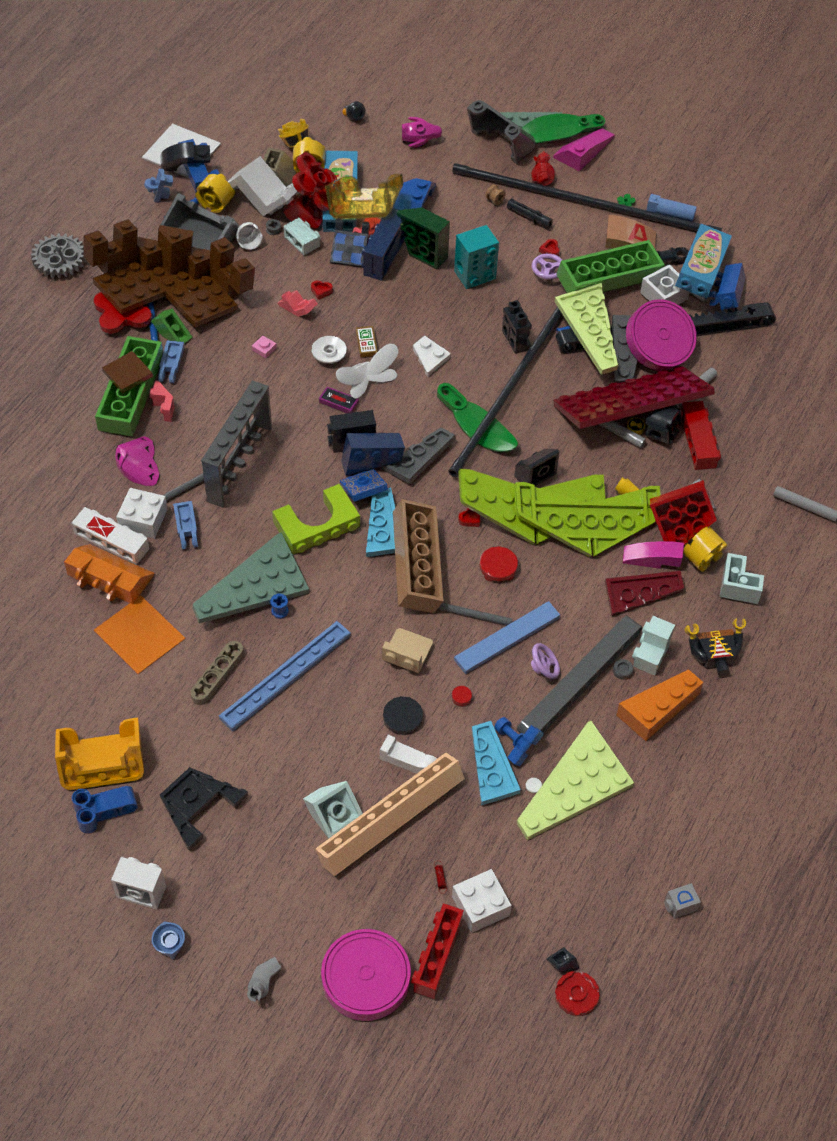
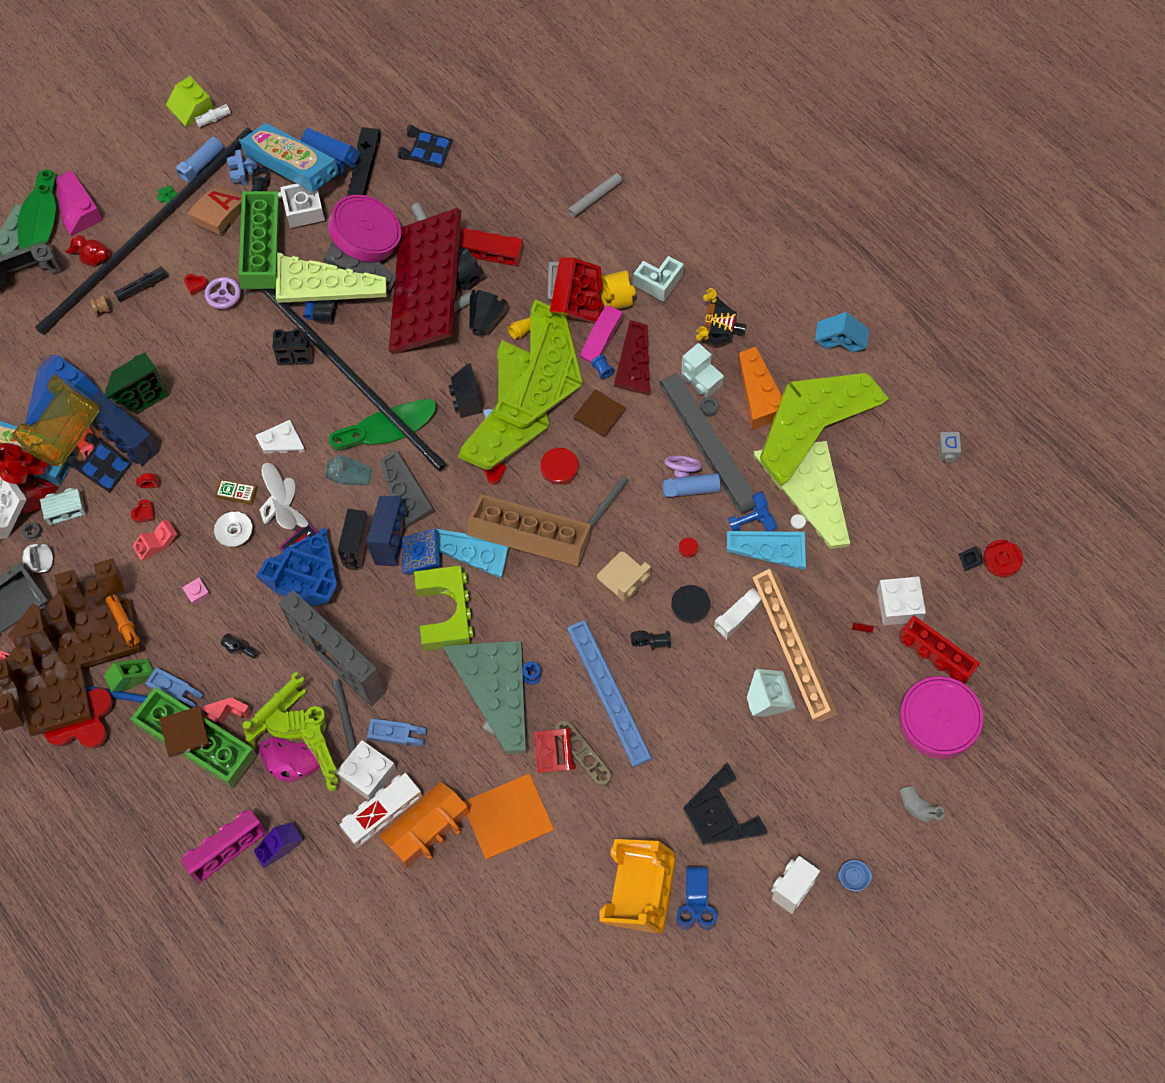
camera: 65 degrees left, 10 degrees up
(42, 438) = (223, 846): none -> dark pink slope
(57, 473) = (277, 844): none -> dark purple slope
(161, 445) = (294, 725): none -> lime piece
(206, 641) = (547, 750): none -> red plate
(207, 304) = (124, 625): none -> orange pin
(223, 386) = (237, 646): none -> black piece
(308, 404) = (302, 568): none -> blue wedge
(348, 280) = (148, 480): none -> red tile
(350, 692) = (644, 638): none -> black connector
(418, 409) = (347, 471): none -> clear light blue slope
(476, 256) = (188, 349): teal piece -> none
(506, 637) = (640, 488): medium blue tile -> none
(526, 675) = (691, 485): none -> medium blue piece
(570, 580) = (599, 413): none -> reddish brown tile
(619, 566) = (602, 367): none -> blue bush
(627, 454) = (485, 311): none -> black cone
(666, 759) = (806, 410): none -> lime wing
(681, 237) = (243, 167): none -> medium blue hips
(721, 203) = (212, 115): none -> white pin
(725, 182) = (188, 101): none -> lime slope
(764, 759) = (843, 331): none -> dark azure brick
(781, 362) = (427, 149): none -> black flag

